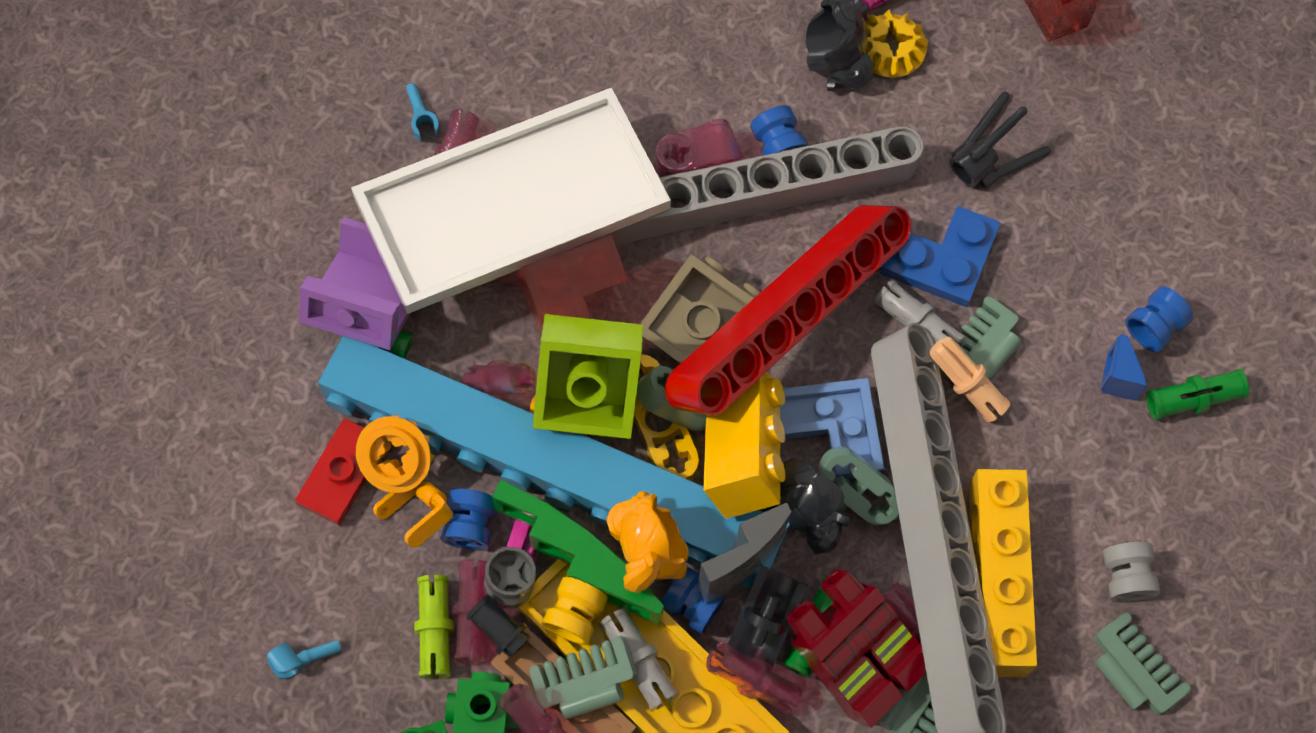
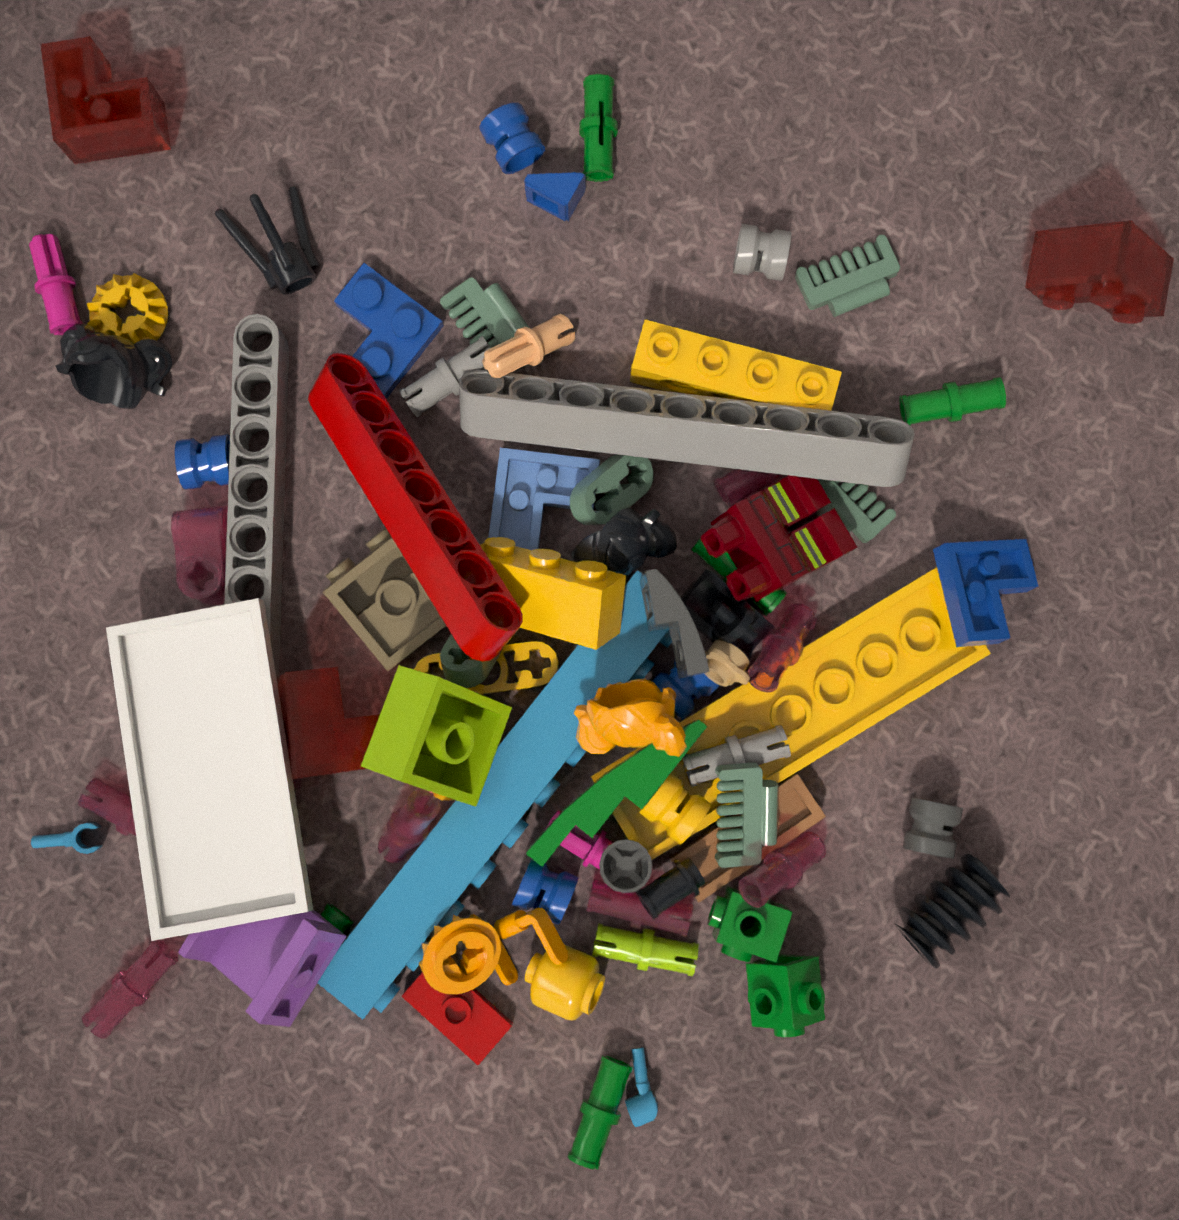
camera: 75 degrees left, 15 degrees up
(273, 621) = (600, 1112): none -> green pin
(302, 192) = (129, 989): none -> clear pink pin
(385, 560) = (565, 988): none -> yellow head
(722, 622) = (726, 664): none -> tan plate

